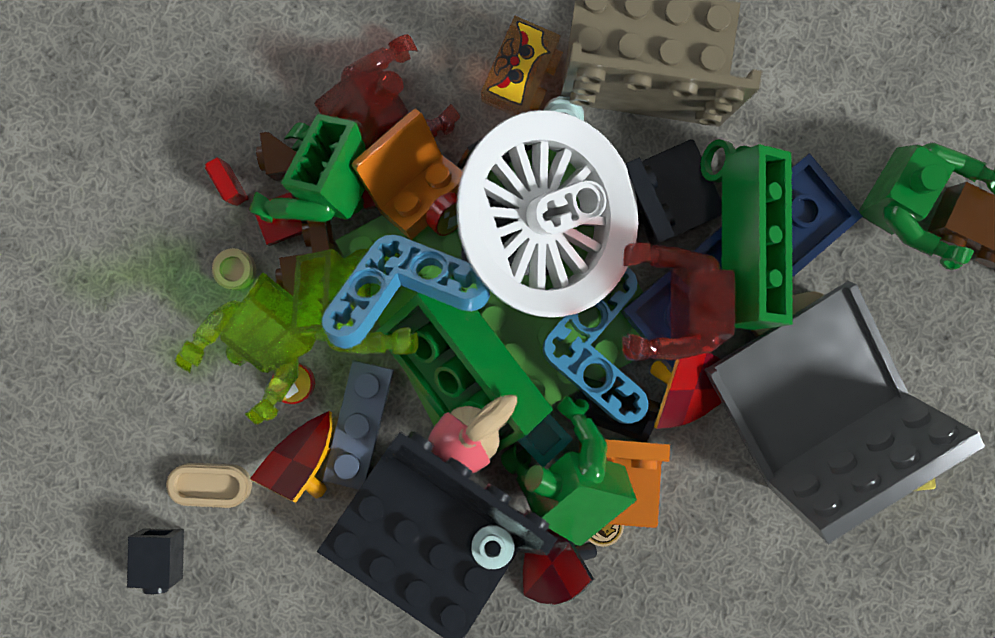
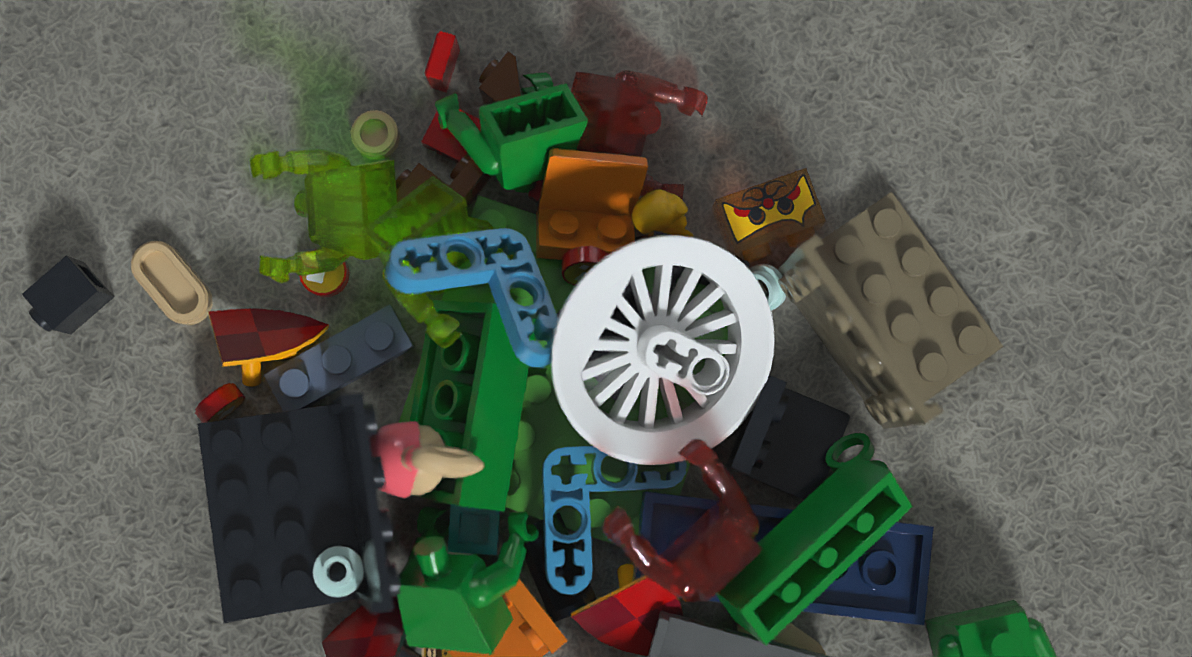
camera: 45 degrees right, 5 degrees down
(315, 525) = (219, 403): none -> red tile
(456, 134) = (661, 213): none -> yellow piece

